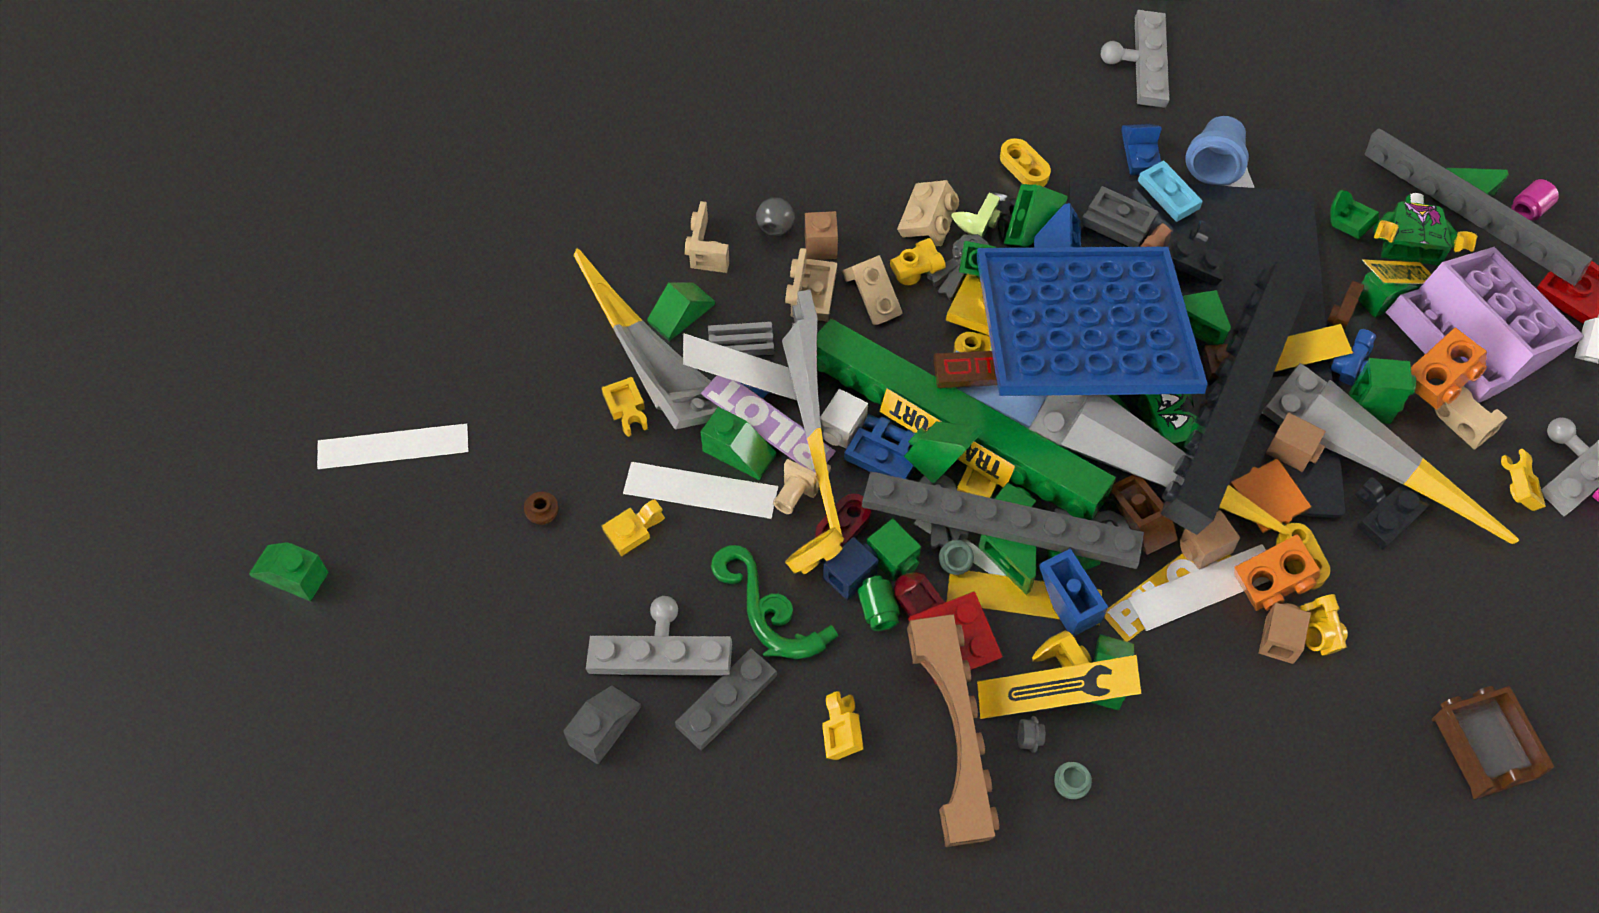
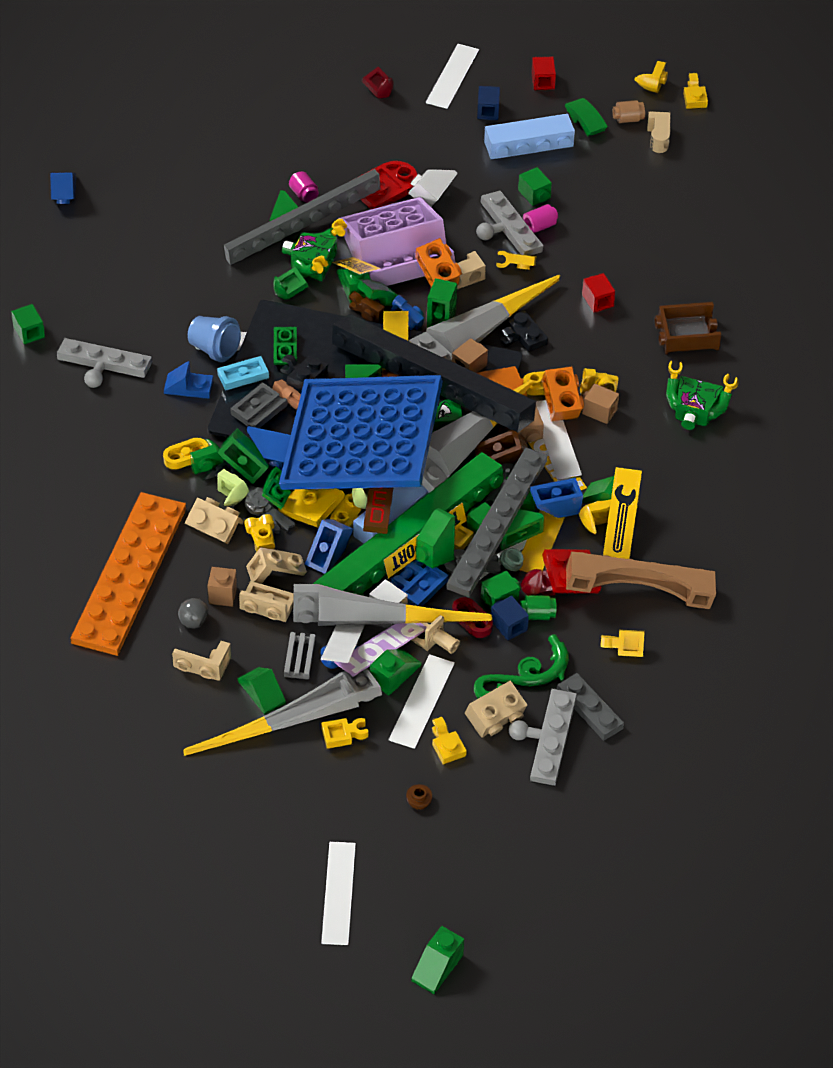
camera: 80 degrees left, 10 degrees down
(600, 723) = (599, 776): dark grey slope -> none
(687, 573) = (496, 709): none -> tan brick
(808, 556) = (496, 630): yellow plate -> none
(828, 147) = (128, 574): none -> orange plate
(920, 335) = (328, 545): none -> blue slope
(1016, 175) = (205, 458): none -> green plate
(1031, 734) = (645, 547): dark grey plate -> none
(1072, 780) = (678, 532): sand green plate -> none
(1237, 229) = (284, 343): none -> green slope
(1343, 770) = (697, 400): none -> green torso
(1378, 313) = (377, 290): none -> green slope
(1507, 599) = (598, 292): none -> red brick

